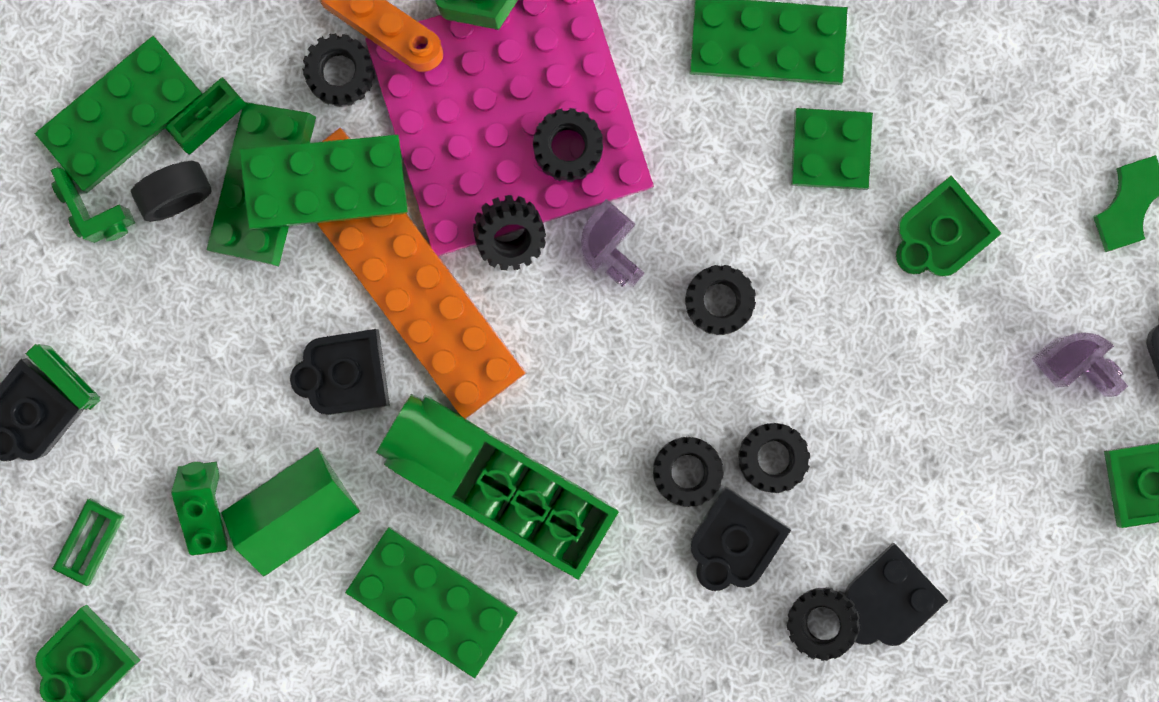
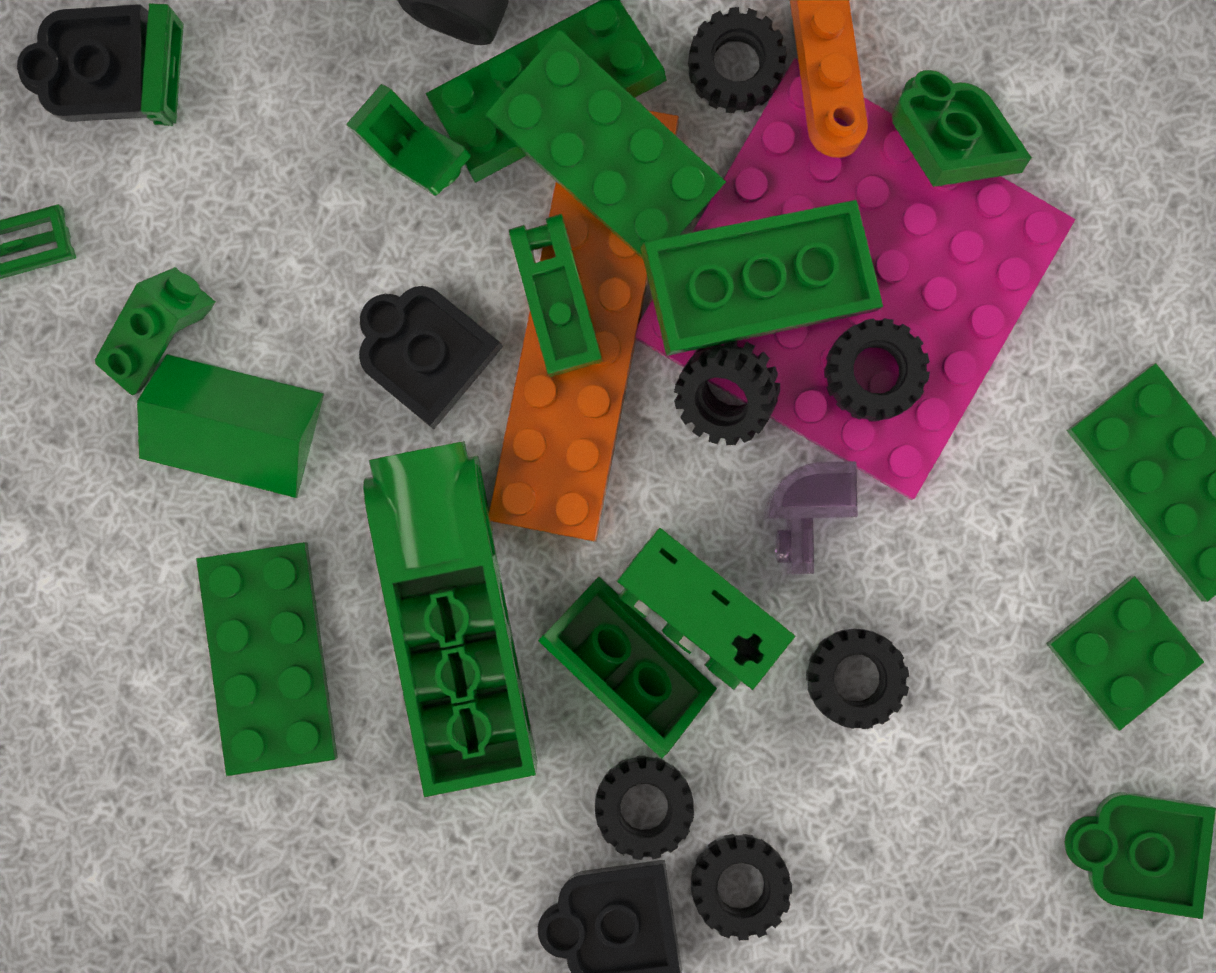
camera: 55 degrees right, 0 degrees up
(225, 283) = (408, 143): none -> green bracket
(379, 278) = (556, 297): none -> green plate
(465, 161) = (761, 277): none -> green plate
(606, 413) = (629, 666): none -> green slope
(610, 348) = (702, 610): none -> green piece

